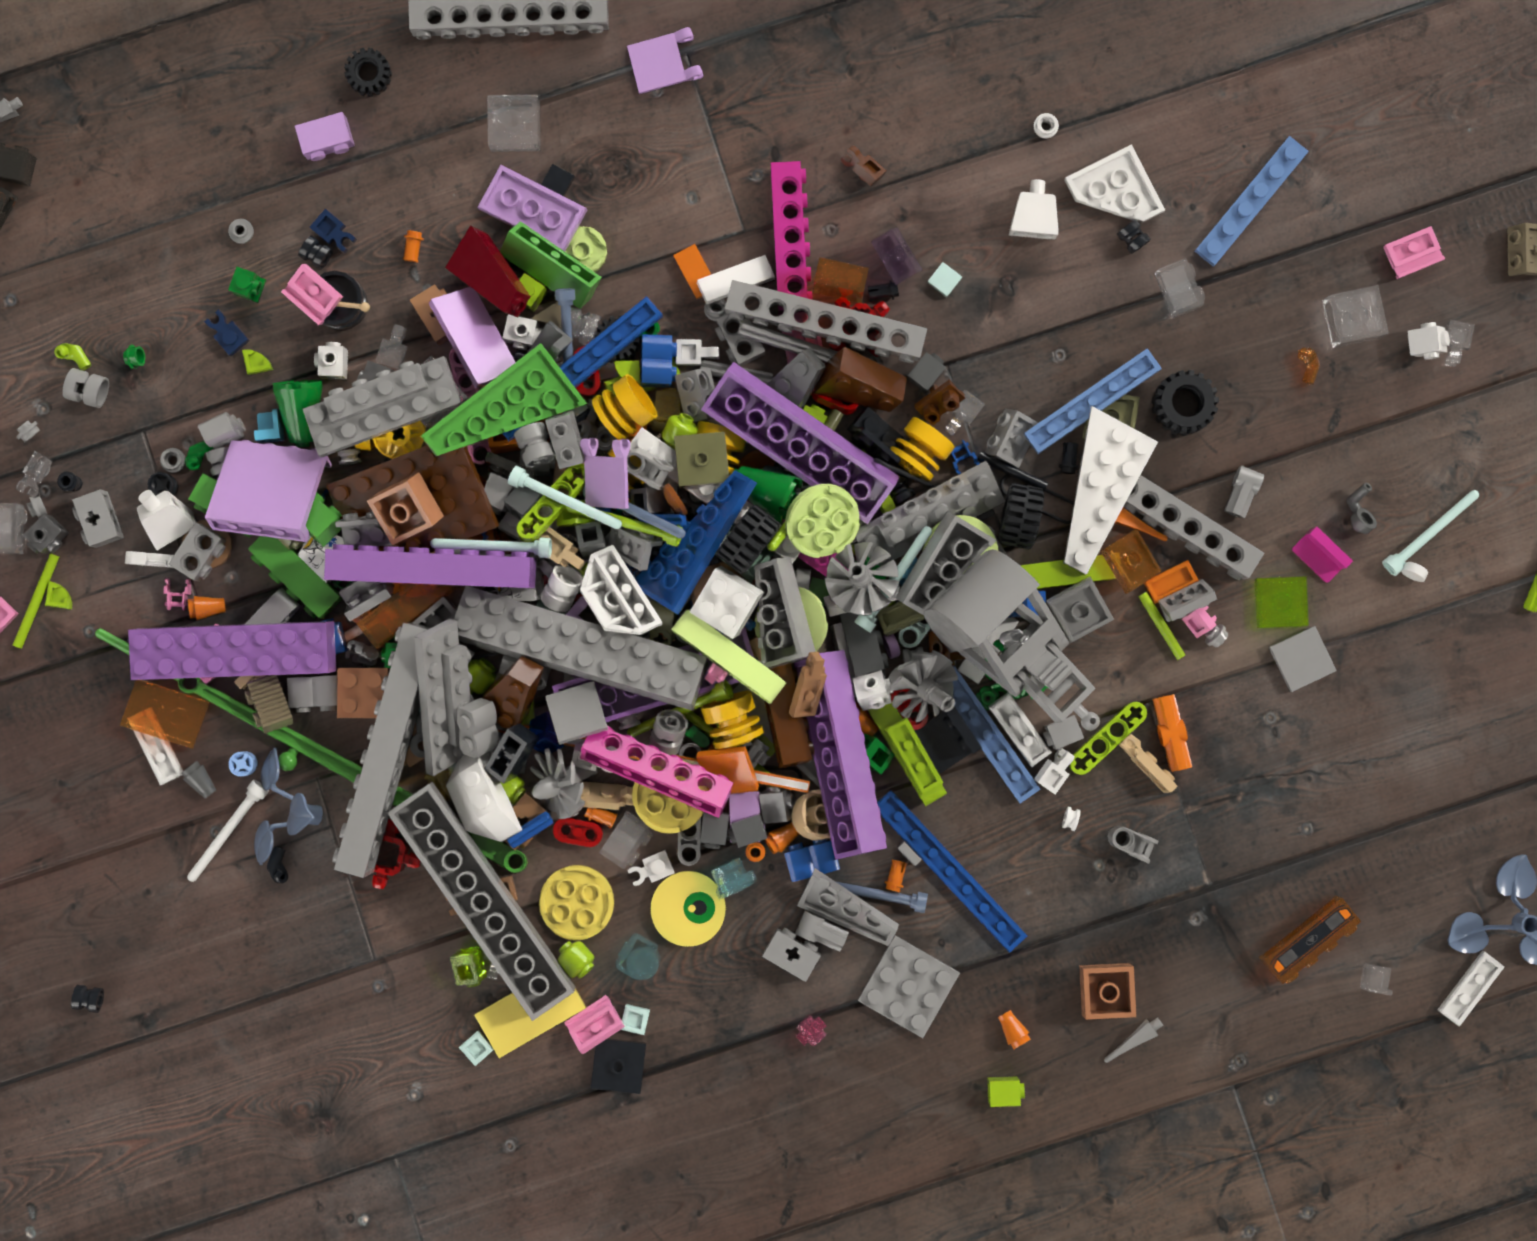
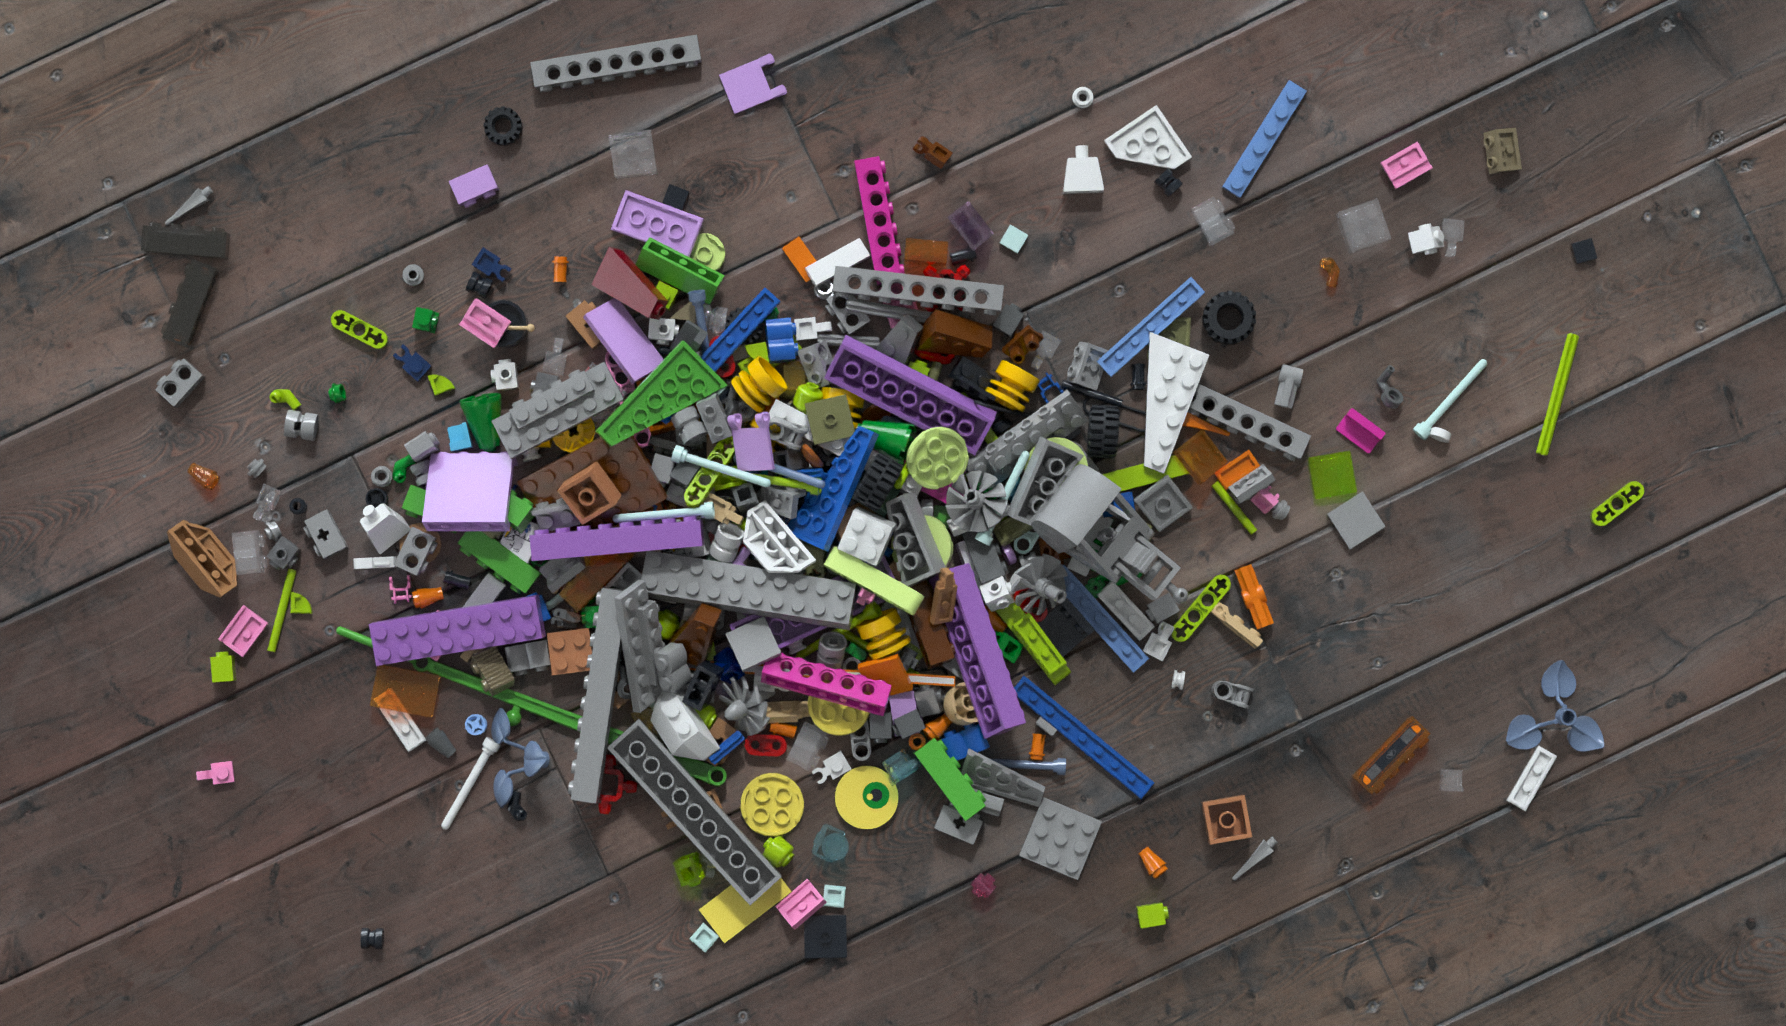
camera: 15 degrees left, 0 degrees up
(171, 296) = (371, 342): none -> lime beam
(243, 592) = (457, 580): none -> black pin
(788, 902) = (950, 779): none -> bright green brick

